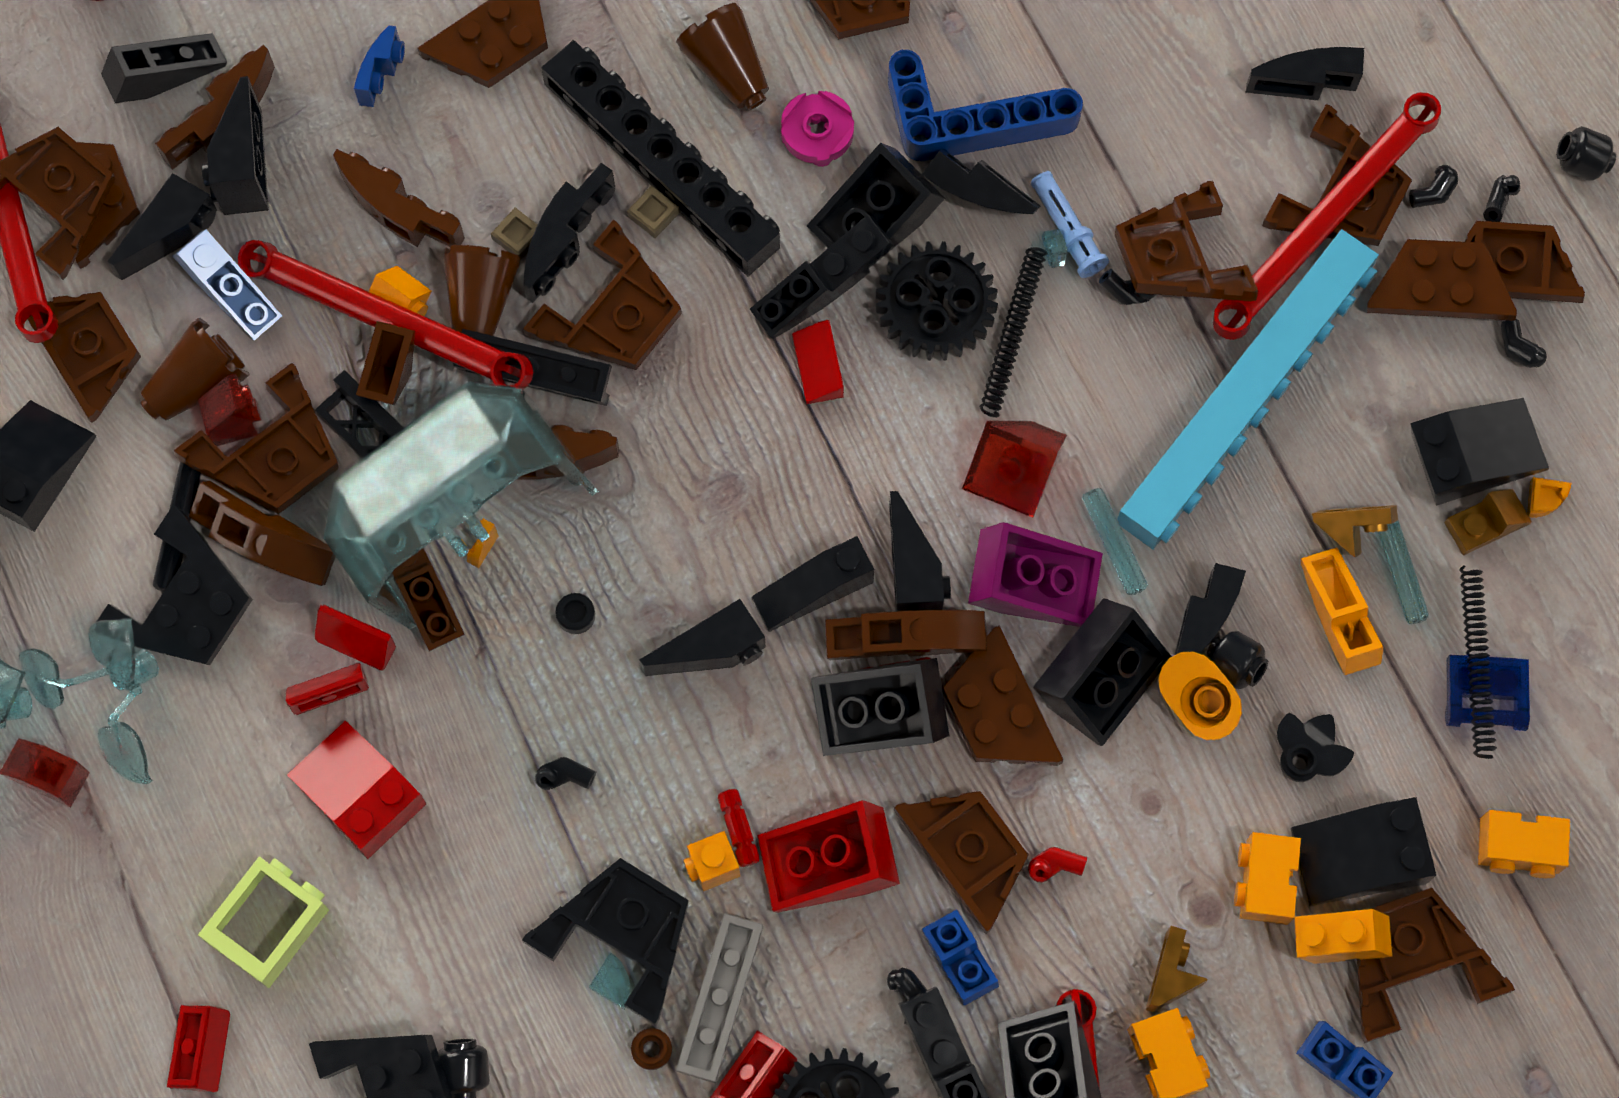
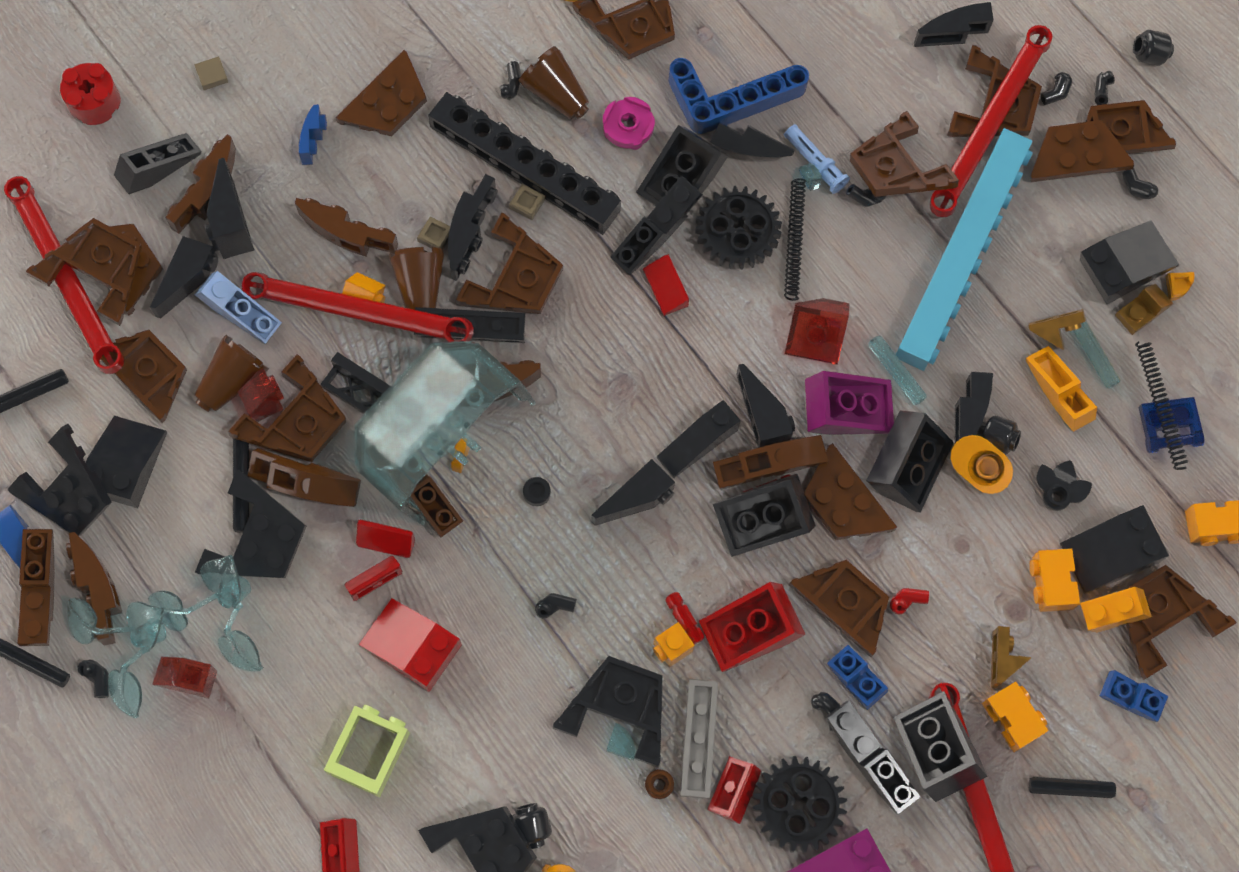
camera: 15 degrees left, 0 degrees up
(387, 363) = (367, 341): reddish brown slope -> none
(666, 52) = (514, 73): none -> black arm

